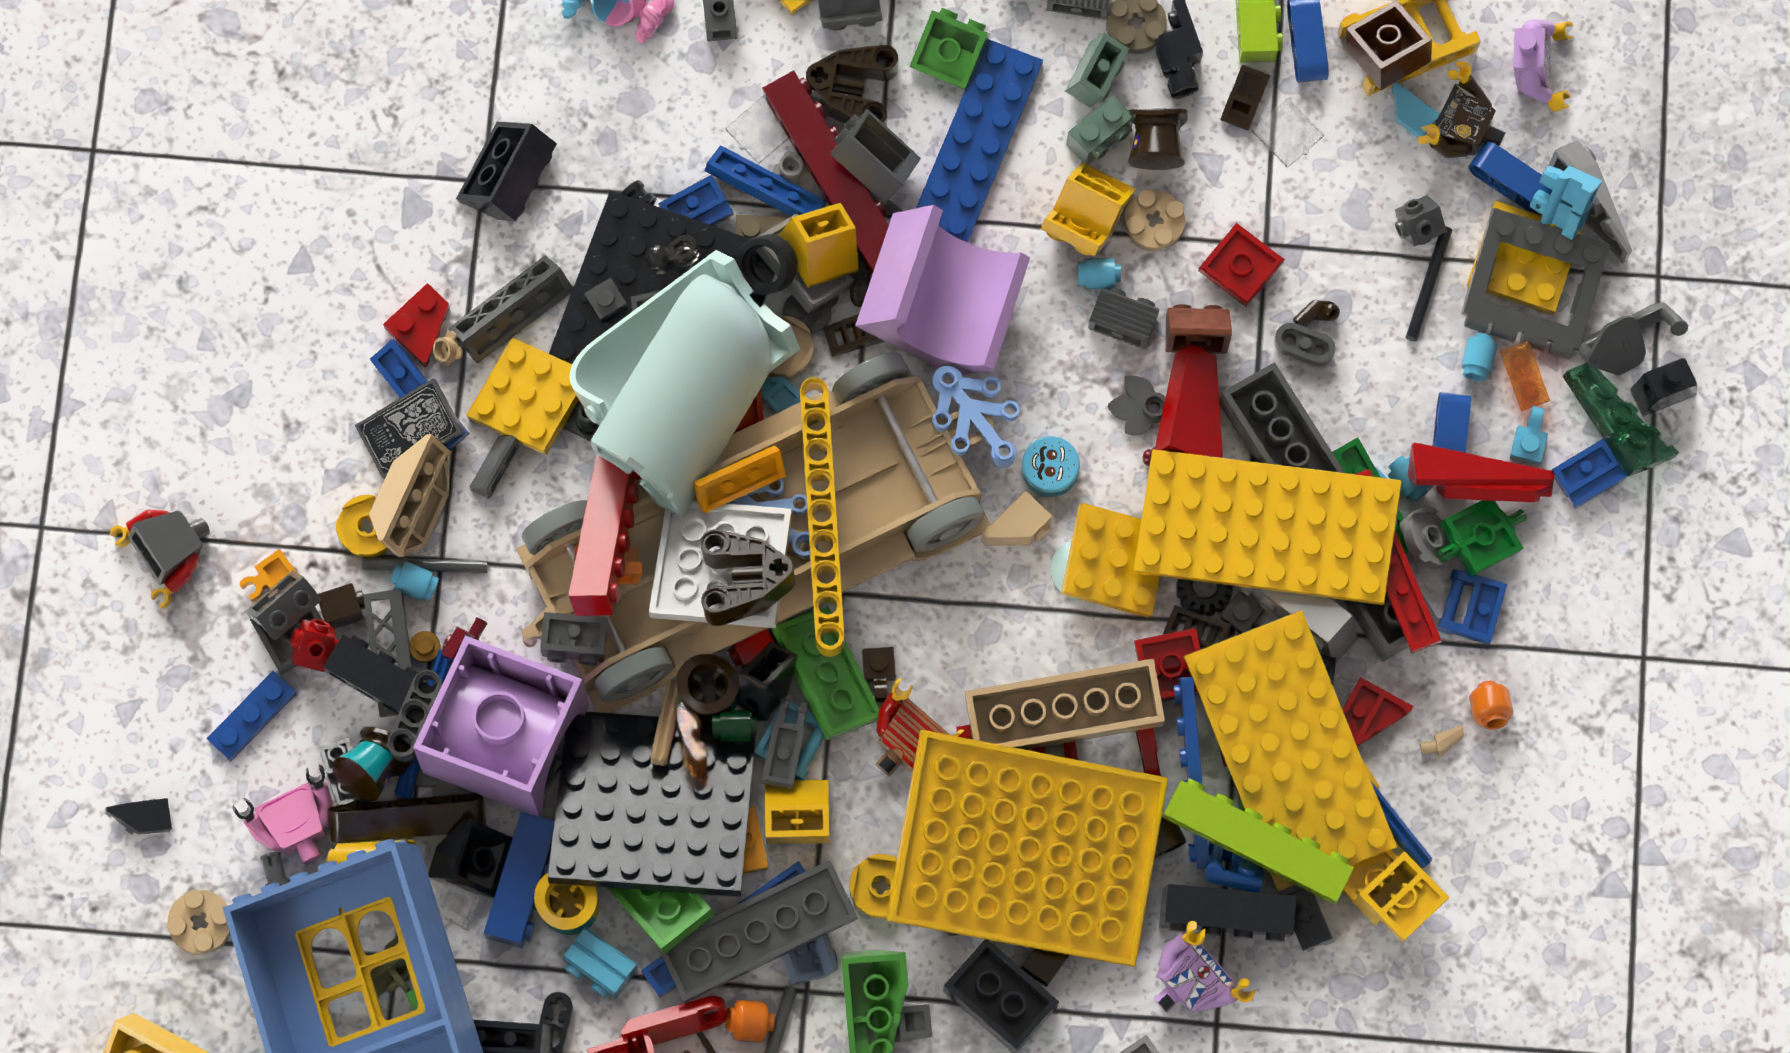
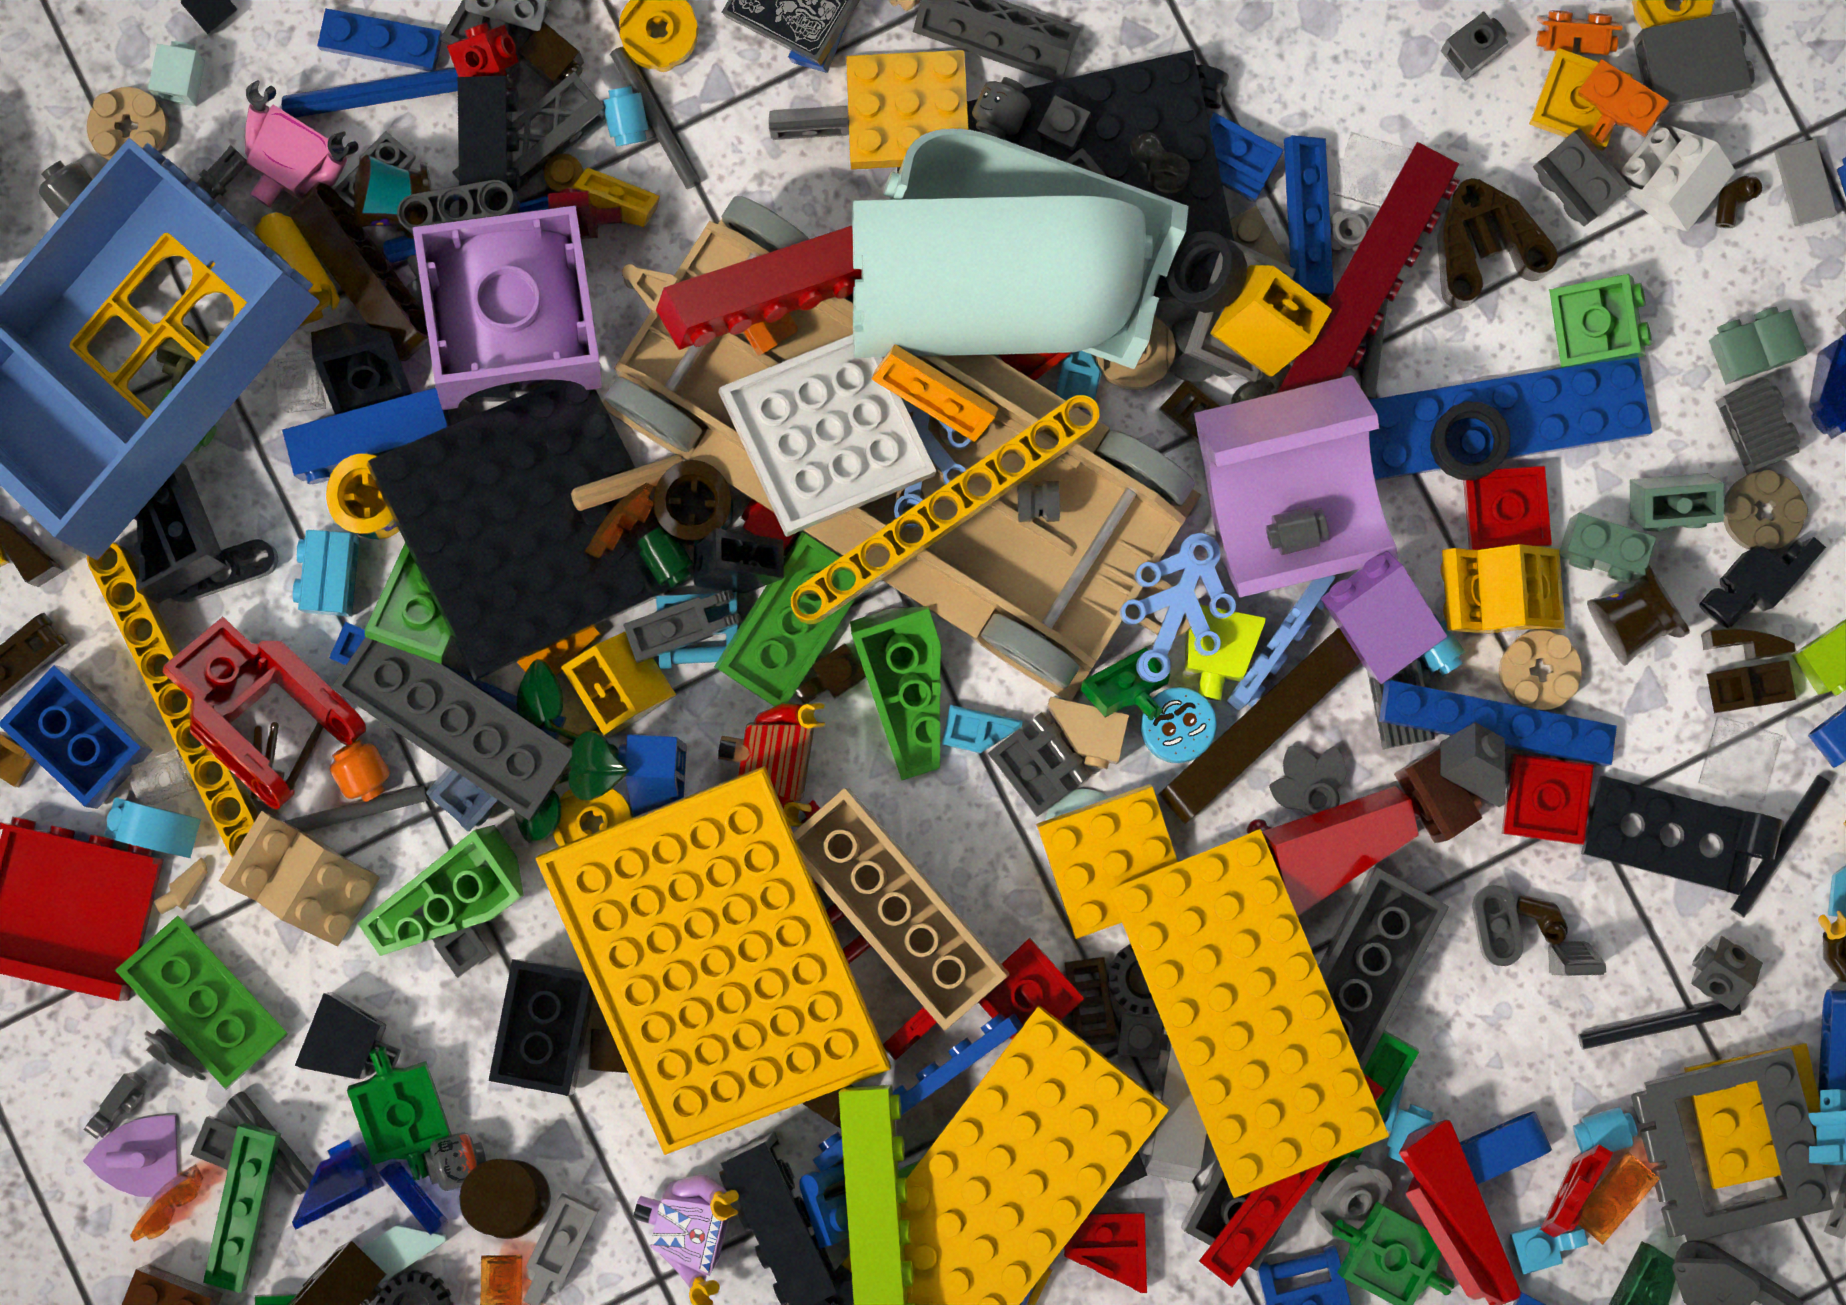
camera: 65 degrees right, 10 degrees up
(186, 864) = (176, 73): none -> light aqua brick
(220, 985) = (63, 185): none -> dark grey head
(287, 737) = (370, 93): none -> blue axle
(412, 497) = (709, 56): tan wedge -> none
(465, 617) = (610, 192): none -> yellow plate
(570, 332) = (1001, 108): none -> dark grey head
(574, 638) = (638, 314): dark grey bracket -> none
(753, 575) = (791, 485): dark brown connector -> none
(848, 846) = (593, 760): none -> dark green plant
(850, 459) = (1038, 501): none -> dark grey wheel
(874, 155) = (1435, 317): dark grey window -> none
(874, 817) = (654, 772): none -> blue wedge
(904, 619) = (903, 672): none -> bright green wedge
(972, 307) = (1297, 530): none -> dark grey brick
(972, 599) = (976, 729): none -> medium azure tile
(983, 149) = (1492, 419): none -> black tyre
(1004, 483) = (1122, 687): none -> green plate
(1025, 579) = (1030, 773): none -> dark grey plate
(1031, 405) = (1238, 641): none -> neon yellow torso
(1035, 177) = (1508, 509): none -> red plate
(1036, 370) = (1273, 654): none -> light blue wing
(1062, 288) = (1383, 616): none -> medium lavender brick
(1081, 403) = (1260, 726): none -> dark brown beam
(1173, 264) = (1520, 726): none -> blue plate
(1191, 290) = (1476, 762): none -> dark grey slope
(1218, 78) = (1755, 643): none -> dark brown slope
(1332, 161) = (1738, 834): none -> black hinge
(1356, 308) = (1575, 959): none -> dark grey slope
(1359, 141) = (1788, 835): none -> black bar
(1504, 394) = (1574, 1190): none -> red wing

